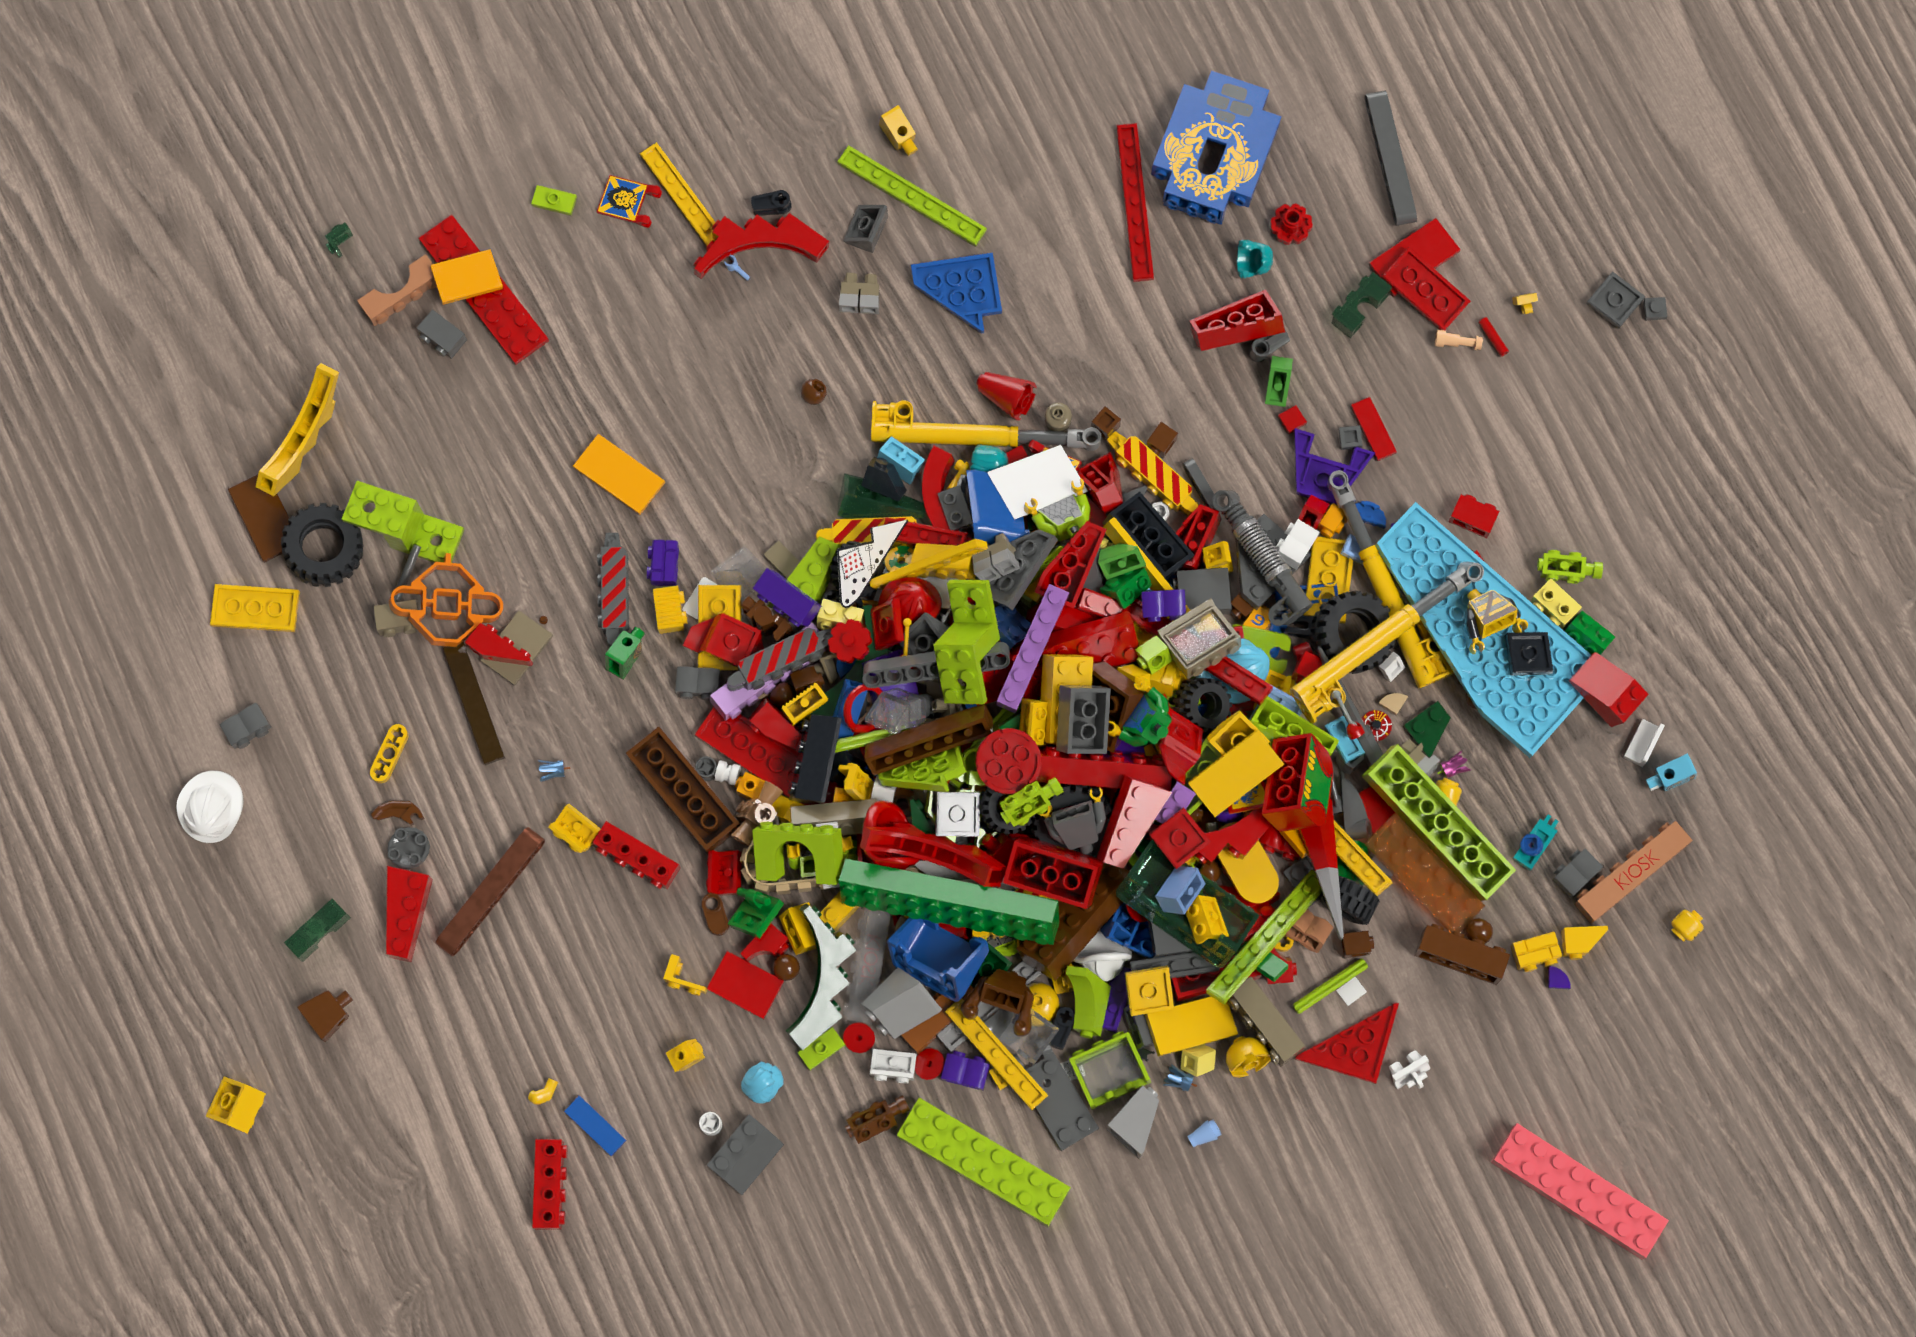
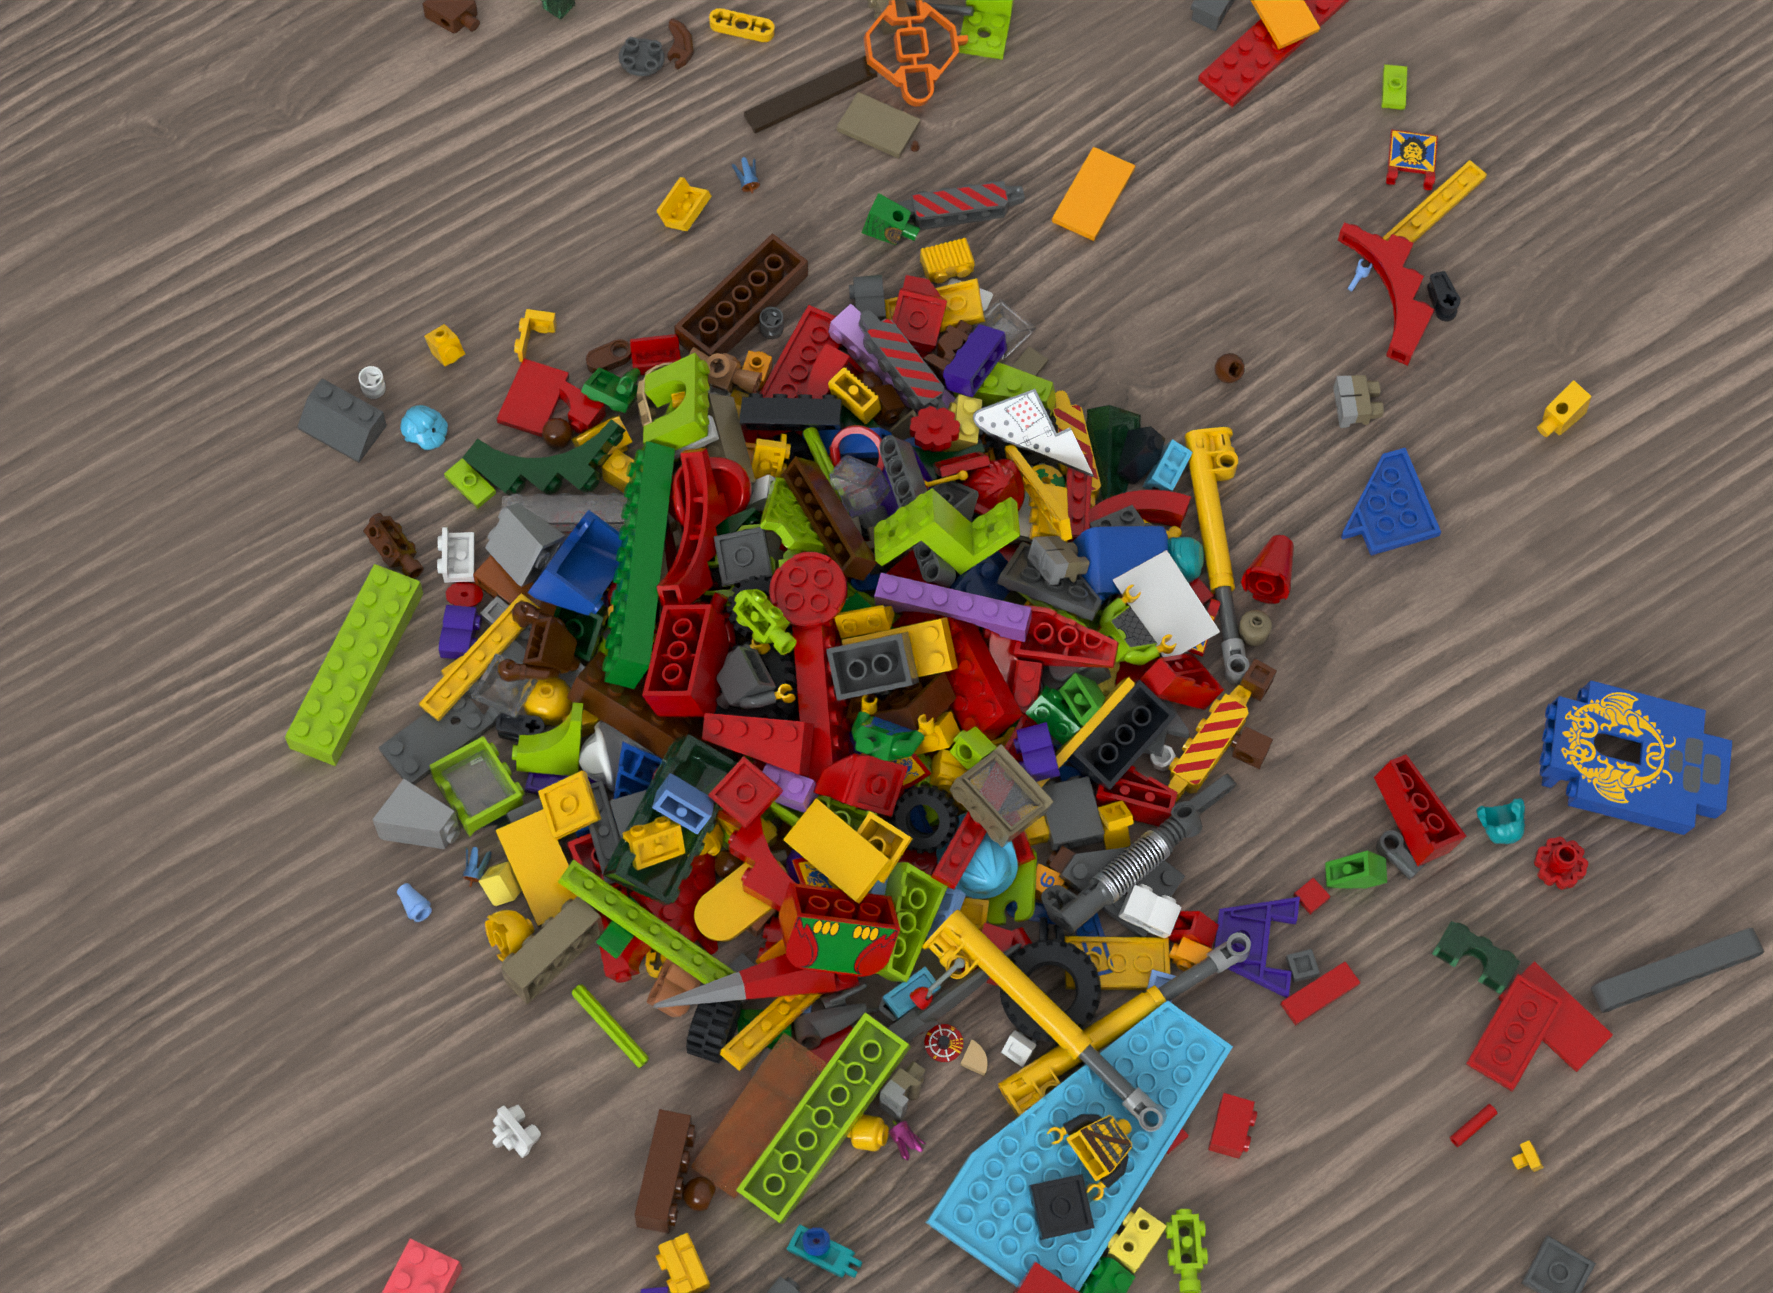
camera: 75 degrees right, 10 degrees down
(405, 910) = (570, 61): red wedge -> none
(490, 891) = (604, 137): copper beam -> none
(492, 647) = (875, 90): red slope -> none
(543, 1095) = (389, 222): yellow arm -> none
(549, 1184) = (290, 237): red brick -> none
(595, 1126) = (359, 274): blue tile -> none
(636, 855) = (663, 268): red brick -> none
(664, 562) = (999, 248): dark purple brick -> none
(727, 772) = (770, 342): white wheel -> none
(859, 1037) = (485, 518): red piece -> none
(866, 226) = (1439, 400): dark grey slope -> none
(912, 196) = (1490, 442): lime tile -> none
(1135, 202) = (1543, 683): red tile -> none
(1351, 991) = (608, 1053): white sticker -> none
(1357, 944) = (664, 1048): reddish brown brick -> none
(1357, 1049) = (536, 1068): red tile -> none
(1371, 514) = (1211, 1000): blue tile -> none
(1428, 727) = (950, 1104): dark green wing -> none
(1448, 339) = (1455, 1061): light nougat piece -> none

